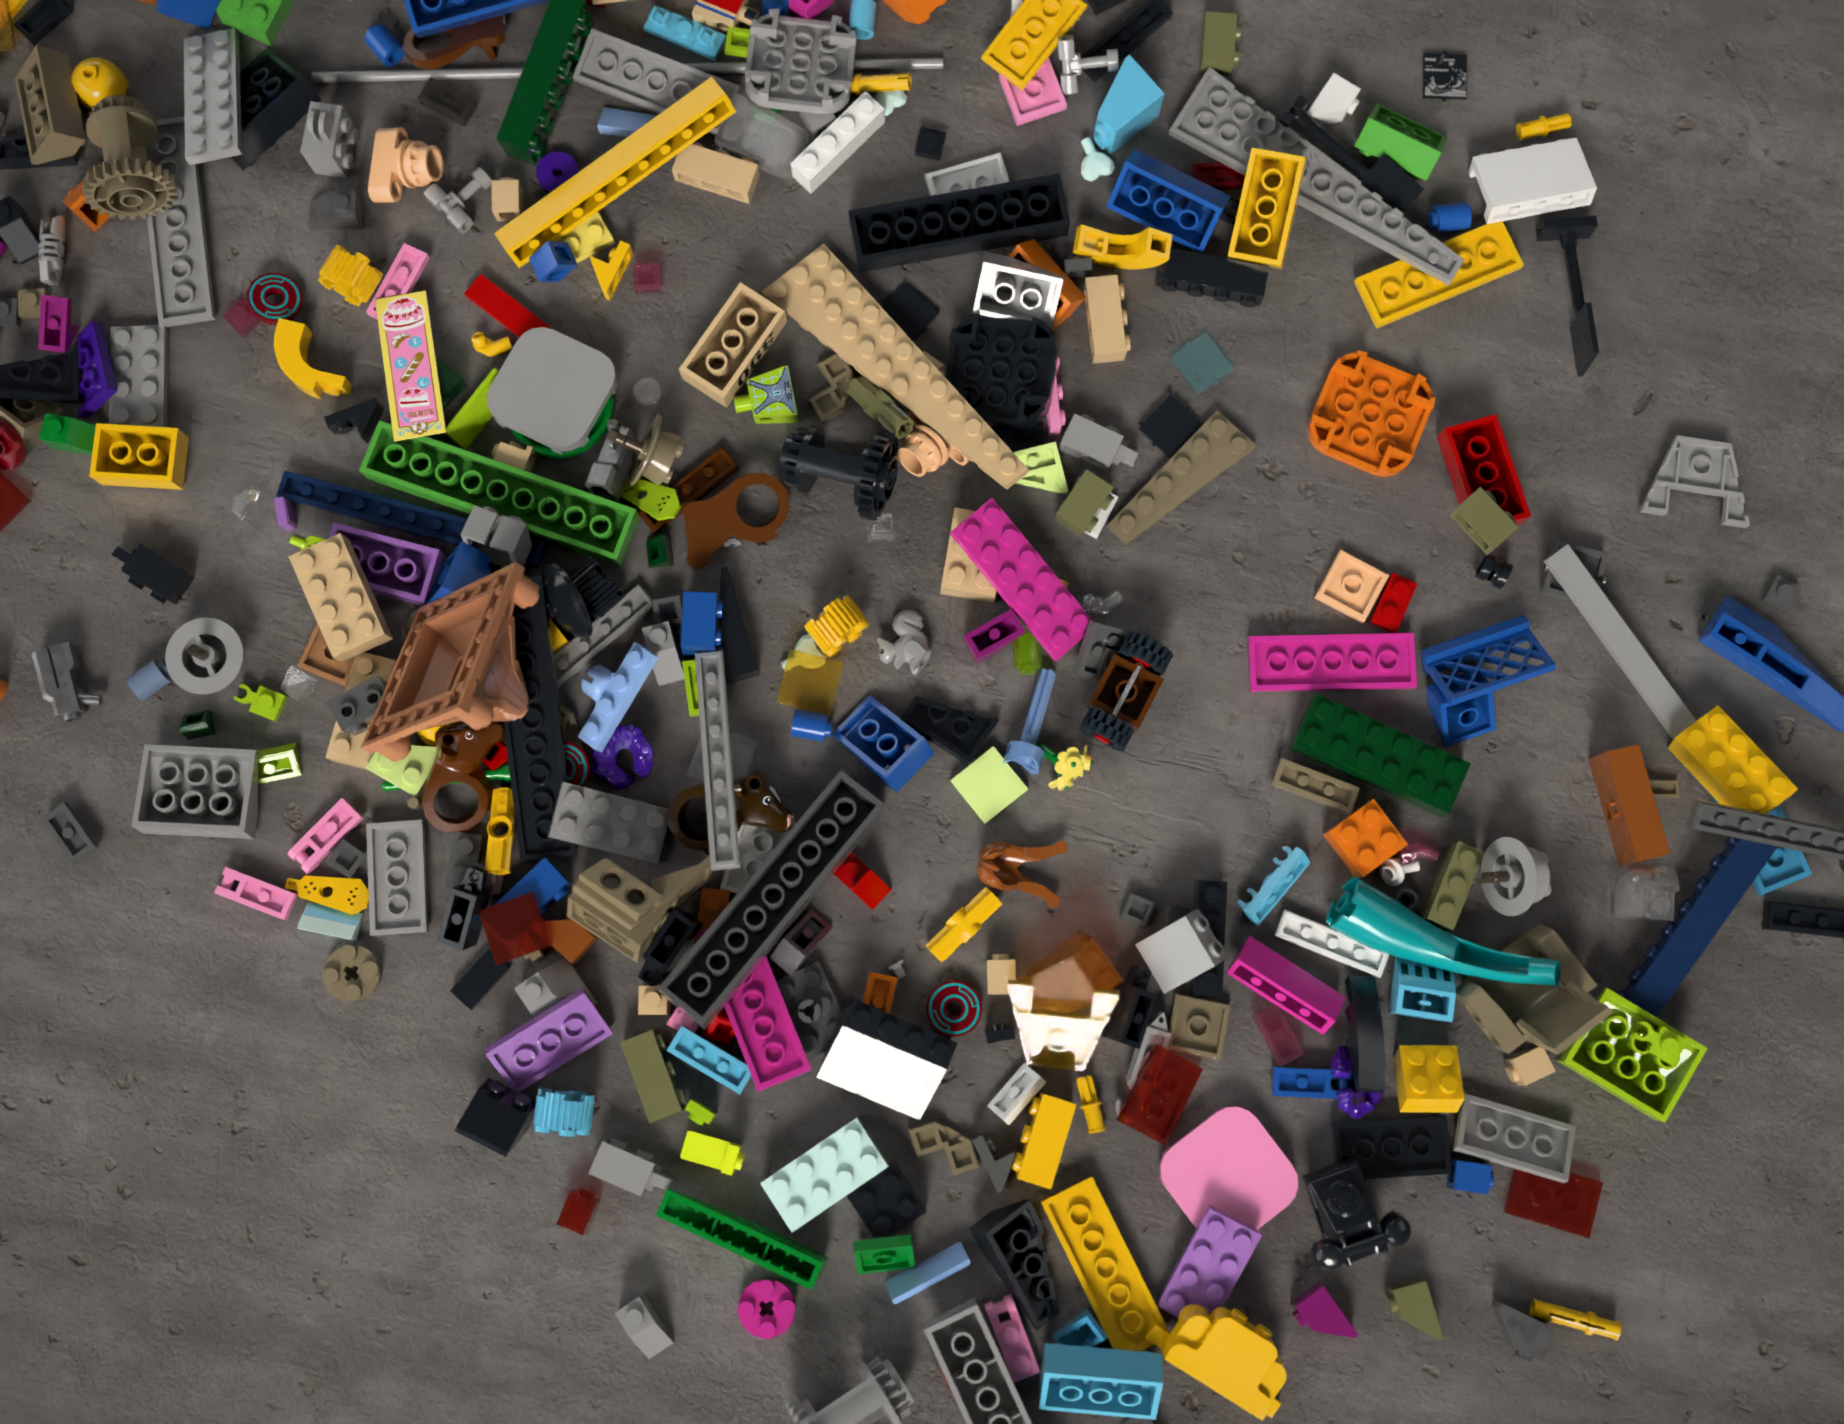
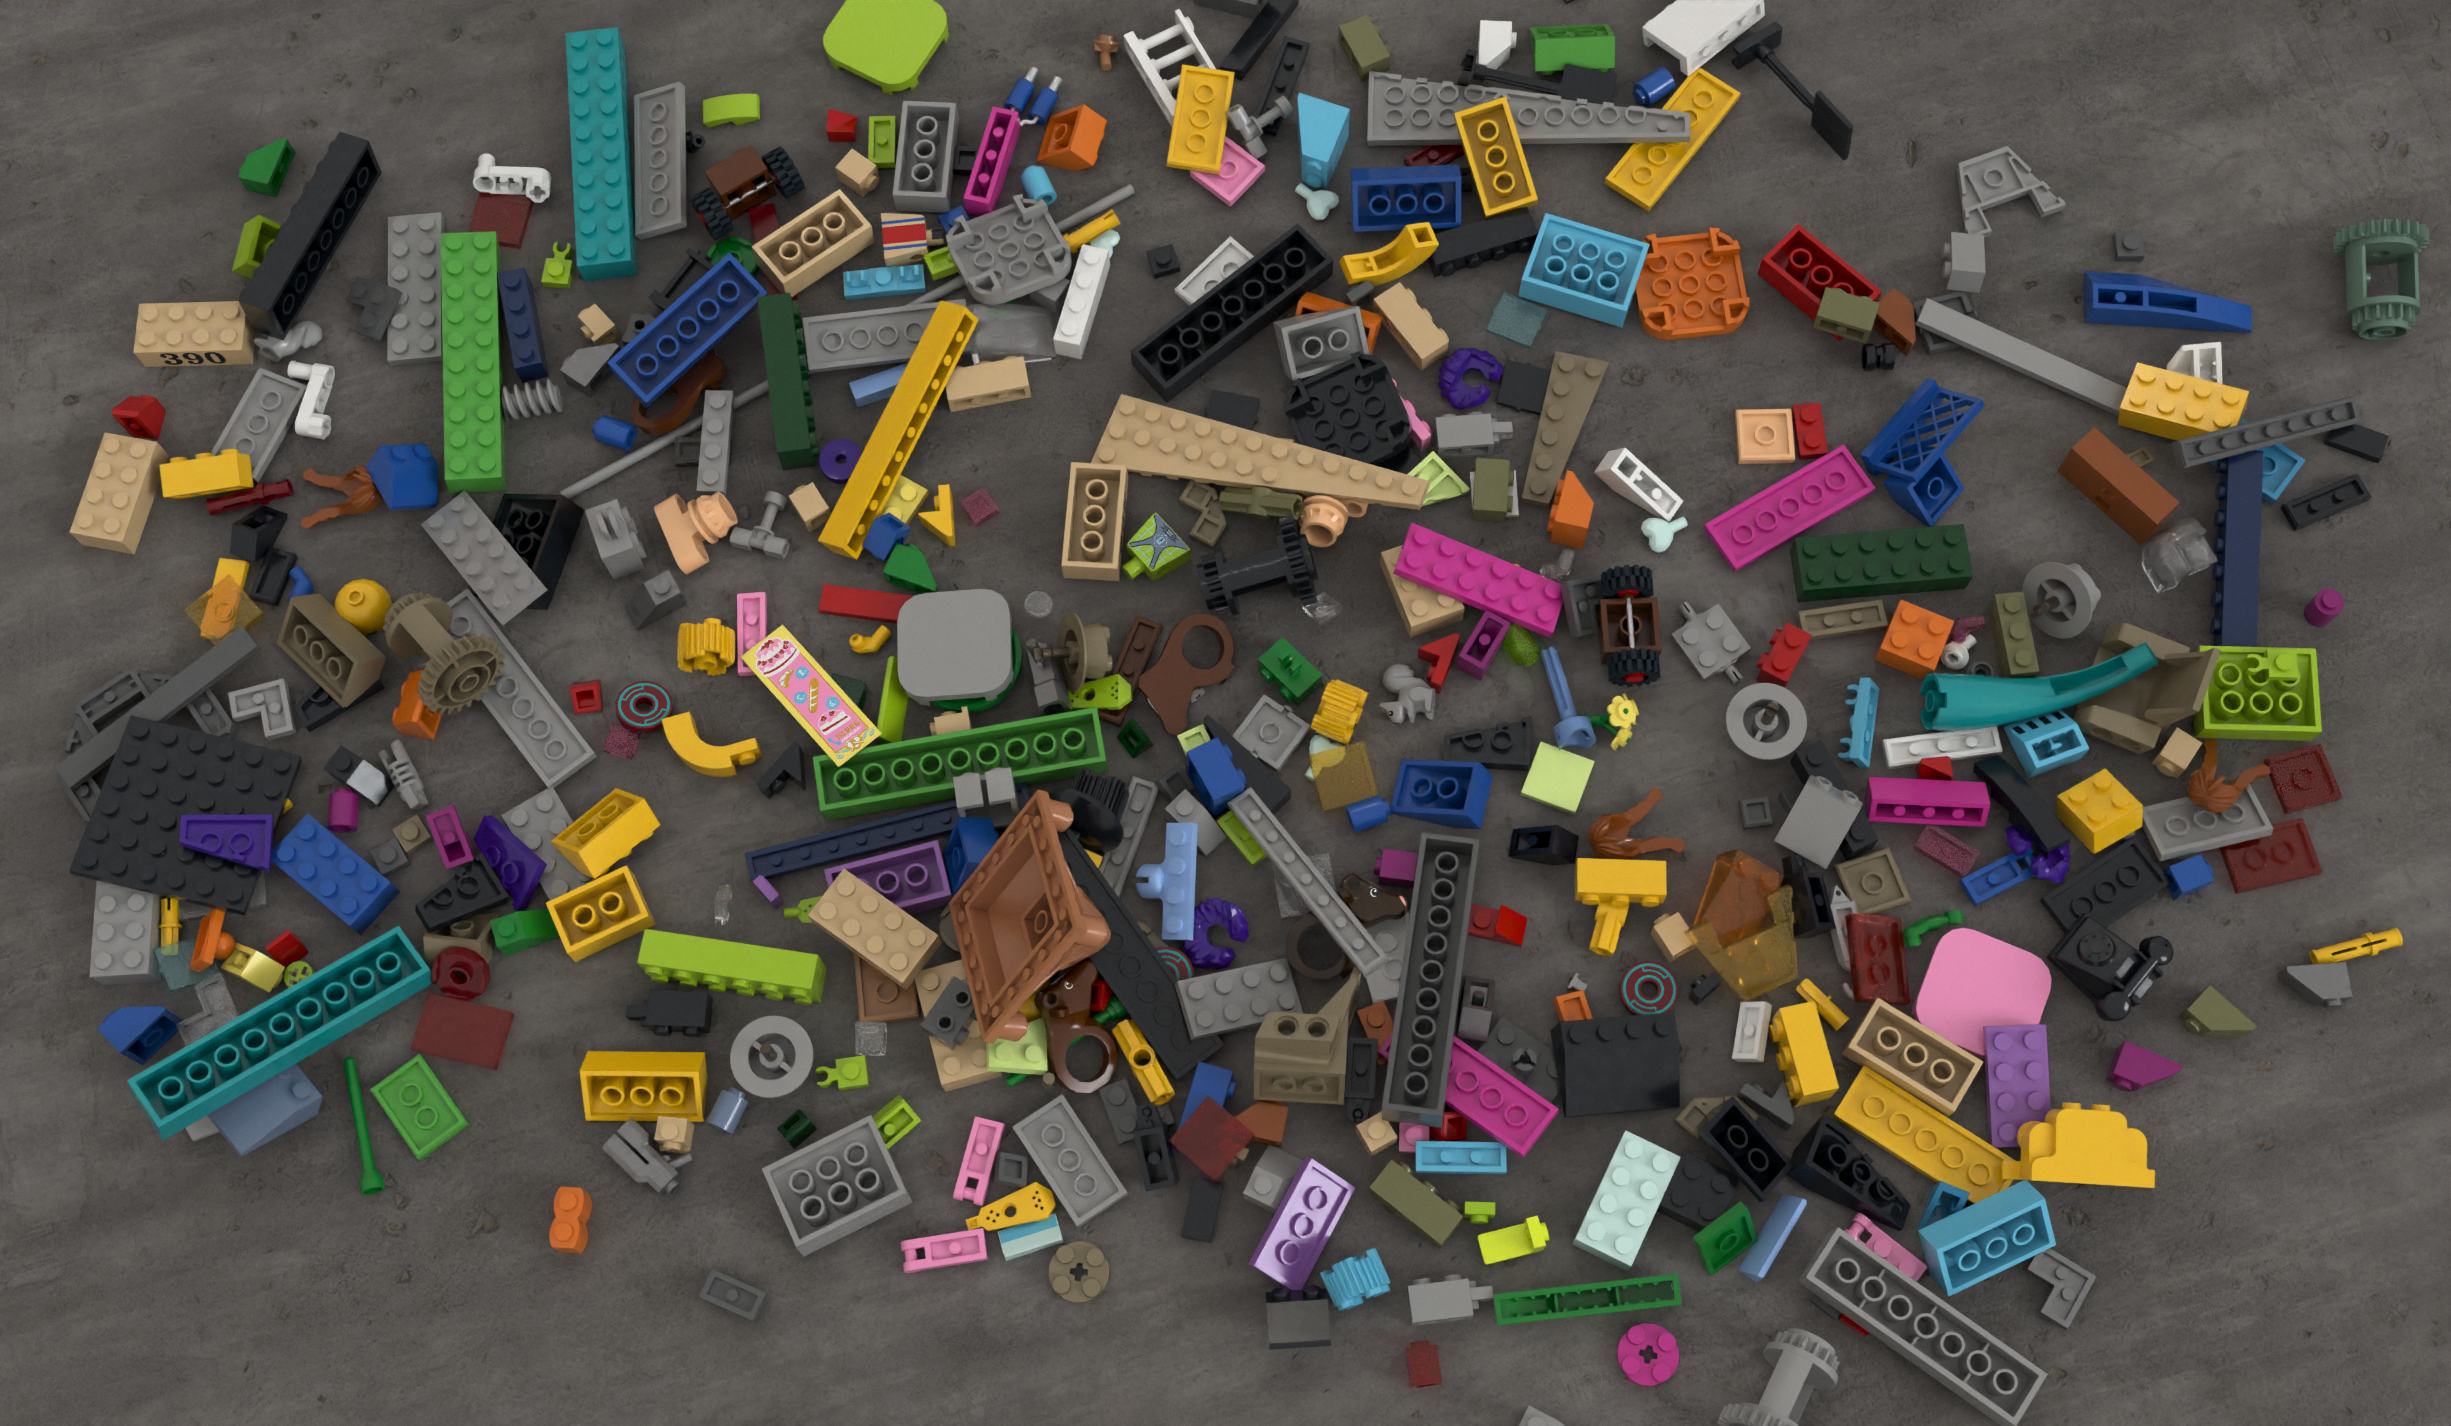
camera: 25 degrees left, 10 degrees down
(61, 40) = (302, 583): none -> blue arm
(96, 620) = (643, 1085): none -> yellow slope
(96, 674) = (674, 1134): none -> tan brick
(181, 390) = (606, 833): none -> yellow slope
(215, 562) = (732, 966): none -> lime brick
(236, 263) = (586, 696): none -> red slope
(459, 100) = (715, 442): none -> light grey plate
(558, 302) = (909, 570): none -> green slope
(706, 581) = (1193, 738): none -> yellowish green plate
(772, 611) = (1271, 732): none -> light grey plate
(805, 785) = (1396, 868): none -> magenta brick
(819, 567) = (1289, 672): none -> green brick
(941, 837) = (1544, 845): none -> black slope
(942, 1191) = (1744, 1147): none -> black slope
(957, 625) = (1441, 655): none -> red slope
(980, 907) = (1620, 881): none -> yellow brick
(1120, 377) = (1453, 369): none -> dark purple piece
(1135, 1195) = (1913, 1057): none -> tan brick
(1138, 565) = (1570, 513): none -> orange slope
(1191, 742) = (1711, 642): none -> light grey plate
(1191, 839) = (1766, 721): none -> light grey piece
(1209, 621) = (1661, 532): none -> light aqua rock
(1214, 569) = (1638, 484): none -> white slope
(1216, 1087) = (1930, 923): none -> green arm
(1241, 792) = (1784, 656): none -> red brick
(1284, 351) = (1583, 270): none -> medium azure slope
(1311, 961) = (1935, 768): none -> red slope
(1530, 546) = (1896, 320): none -> dark orange slope
(1540, 1127) = (2211, 792): none -> dark orange hair
(1624, 528) = (1964, 262): none -> light grey brick
(1625, 1148) = (2303, 779): none -> clear red tile
(1741, 1012) = (2323, 607): none -> magenta brick
(1773, 735) = (2198, 361): none -> white slope

